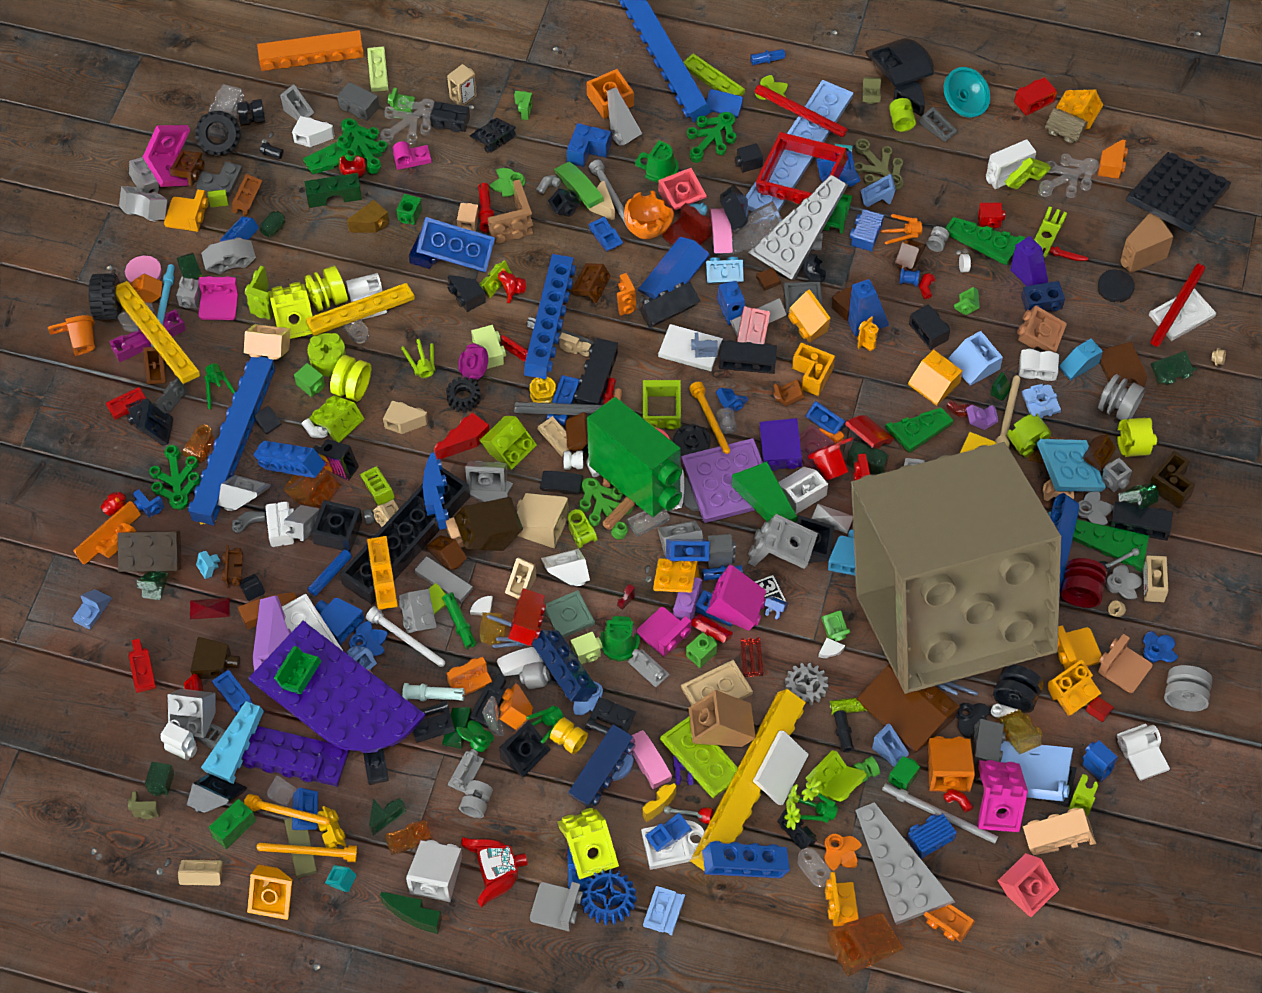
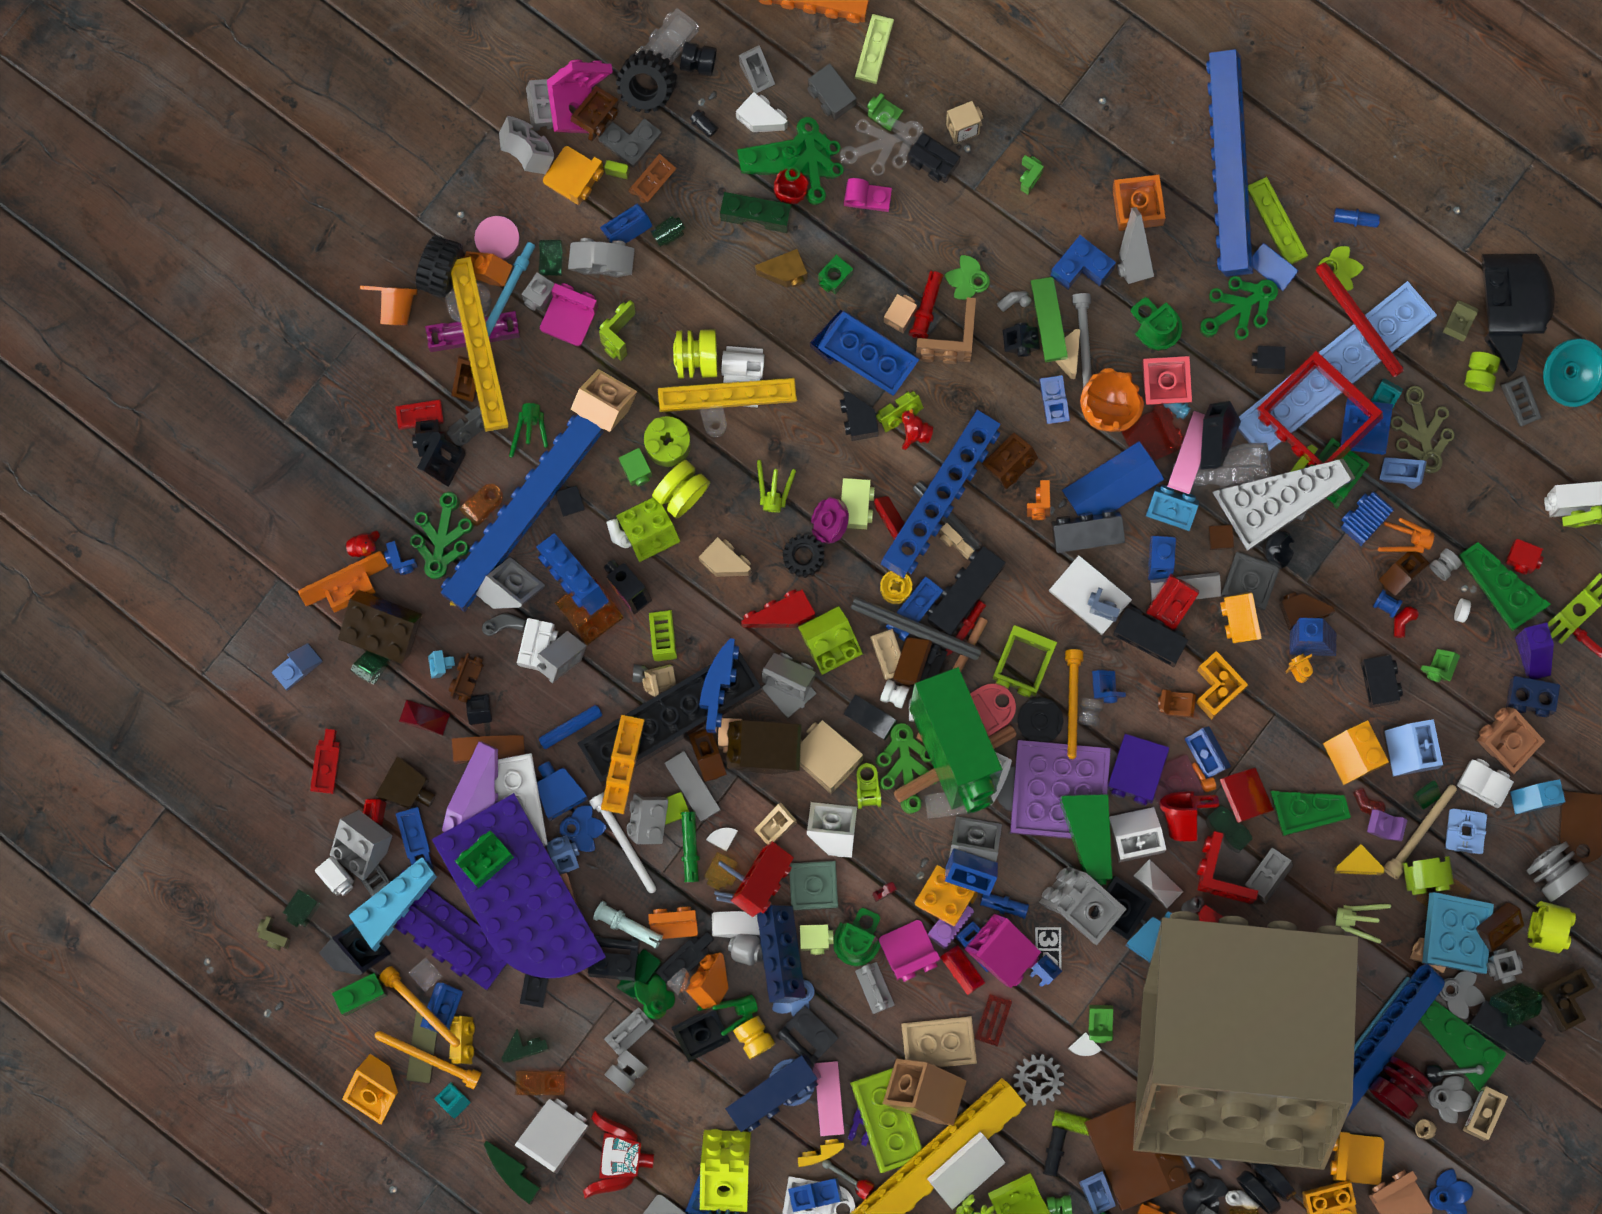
camera: 25 degrees right, 20 degrees up
(200, 872) = (309, 1033): tan slope -> none
(288, 302) = (648, 354): neon yellow bracket -> none
(337, 525) = (597, 675): black brick -> none
(494, 134) = (976, 201): black hinge -> none
(701, 649) = (941, 991): bright green brick -> none
(721, 551) = (1010, 884): dark grey brick -> none

